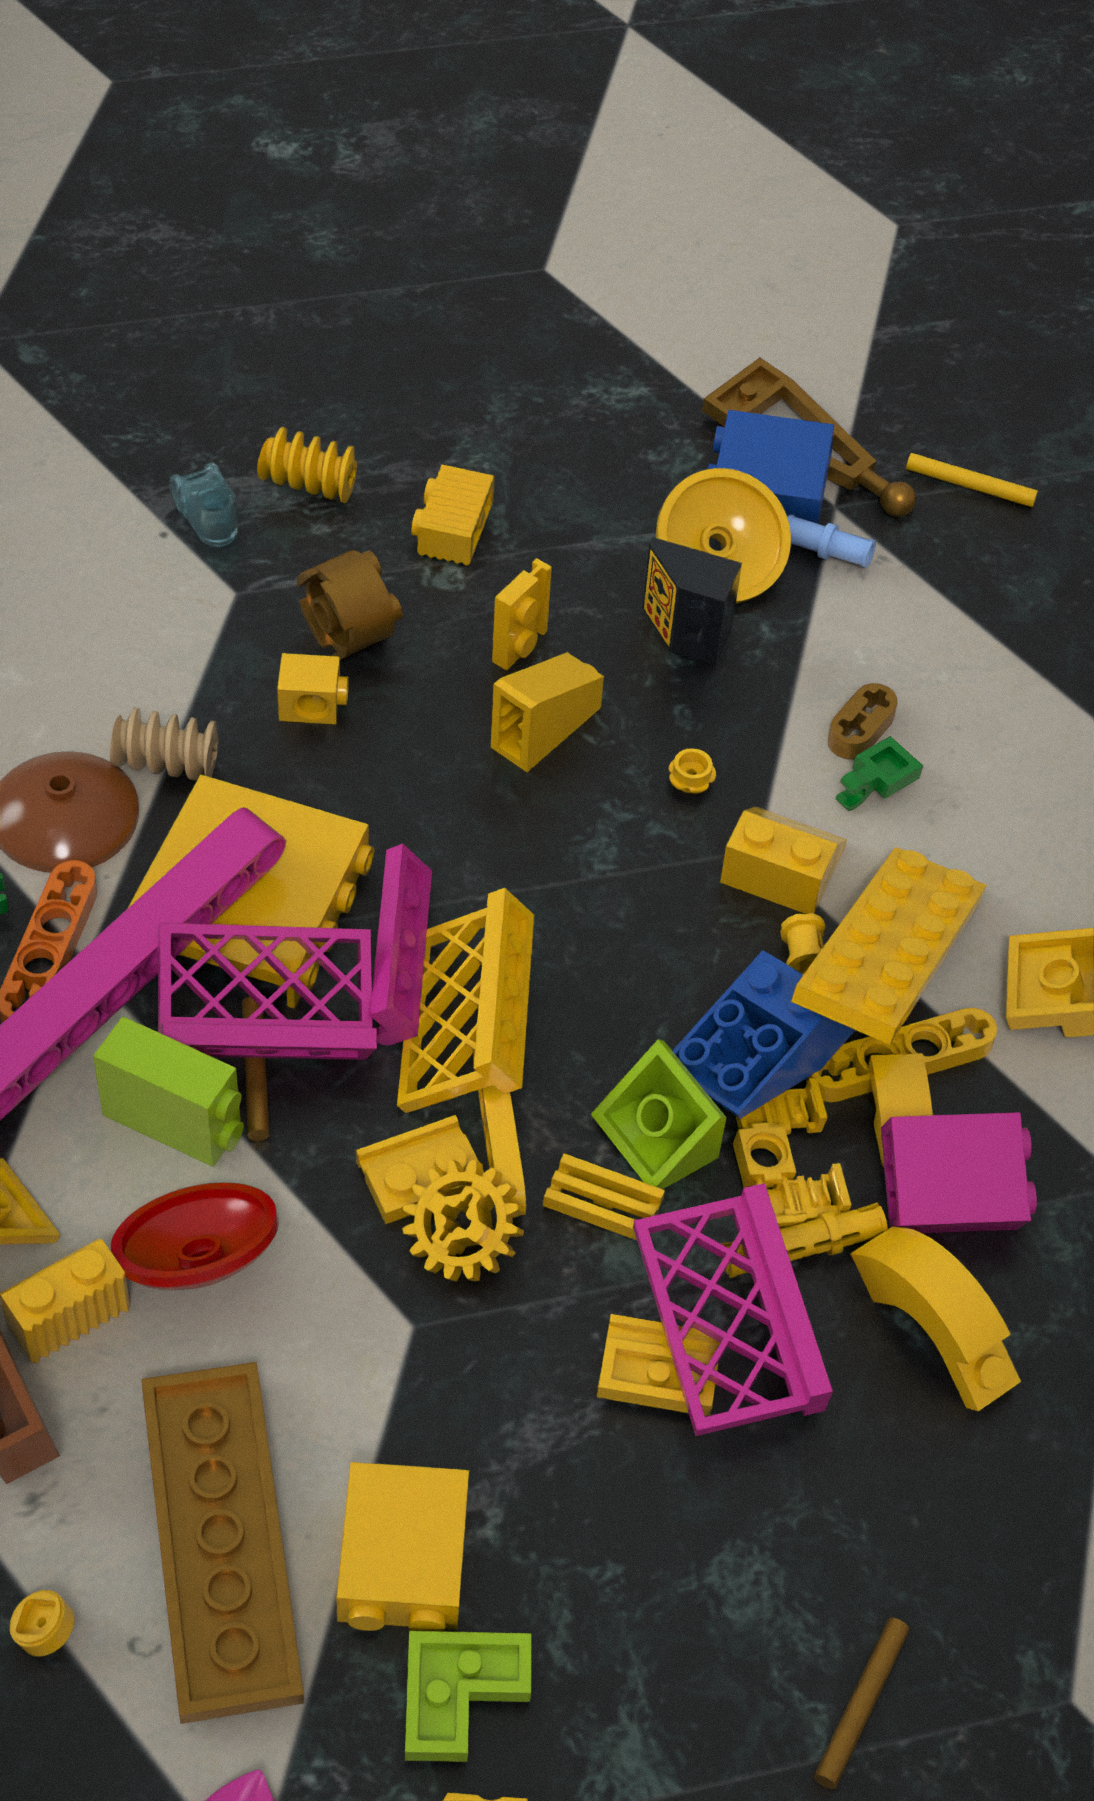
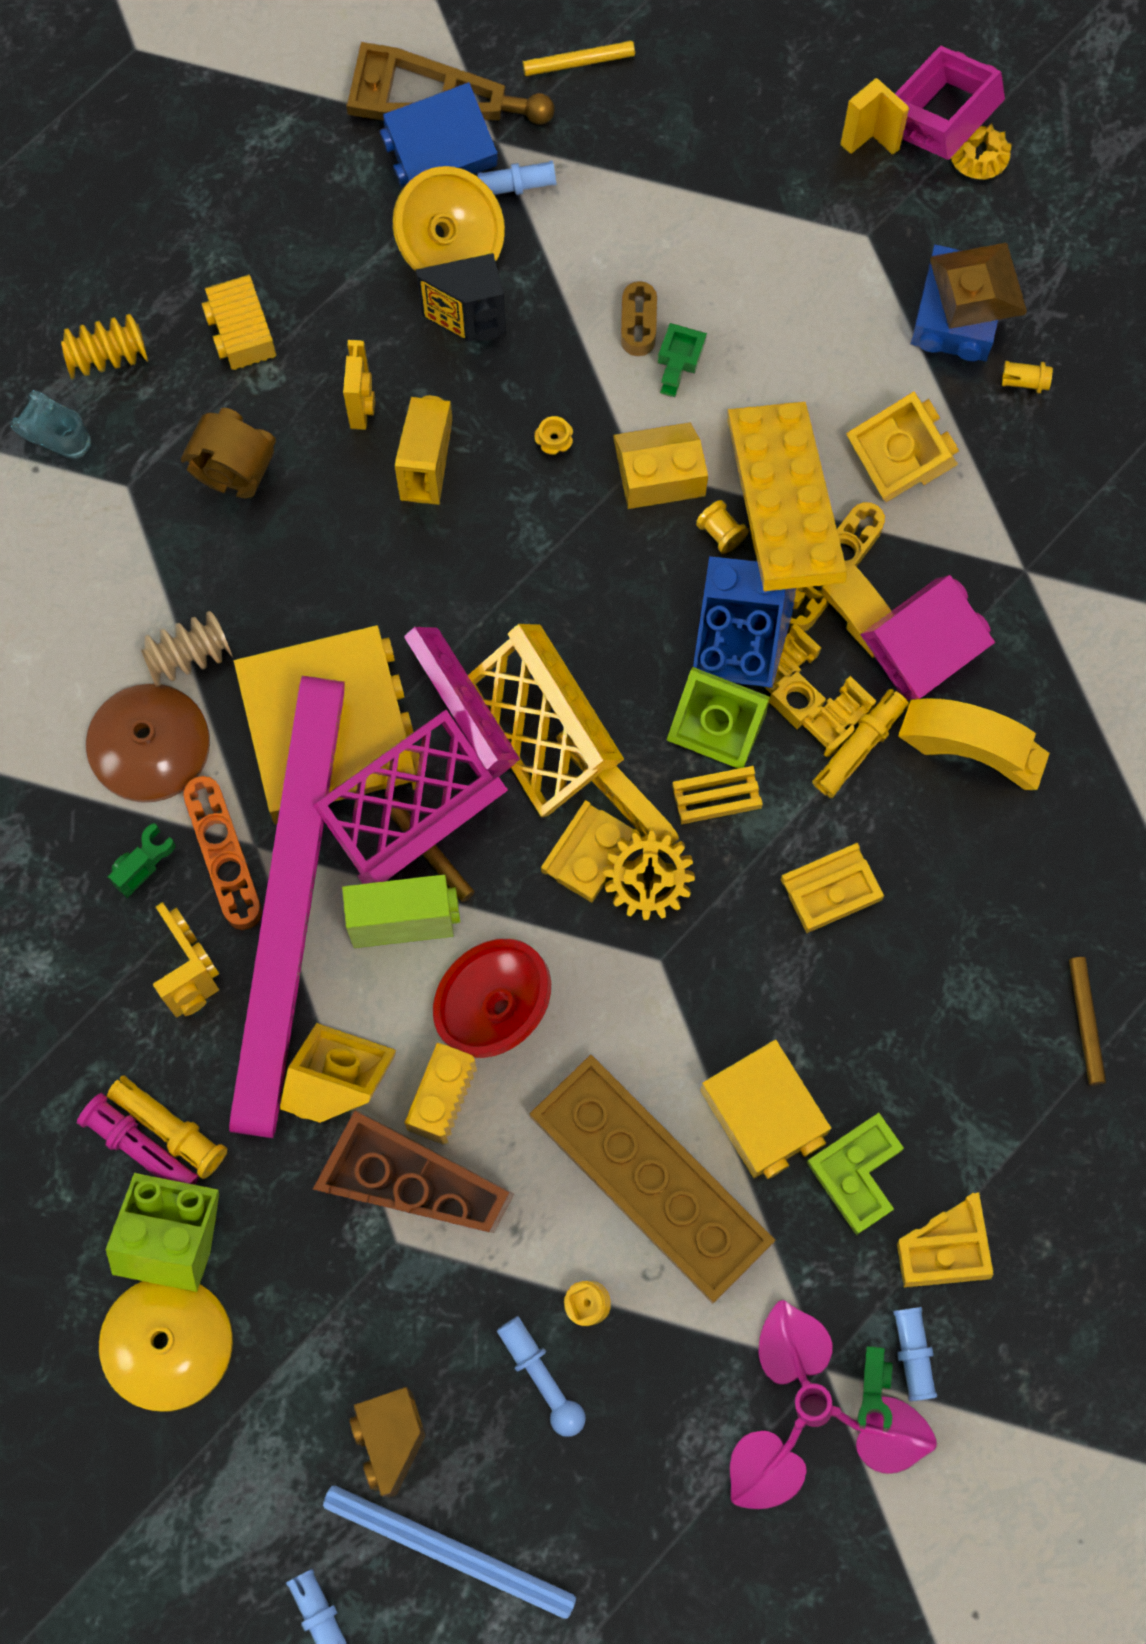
camera: 30 degrees left, 20 degrees up
(310, 688) = (249, 536): yellow brick -> none
(780, 1302) = (879, 798): dark pink fence -> none

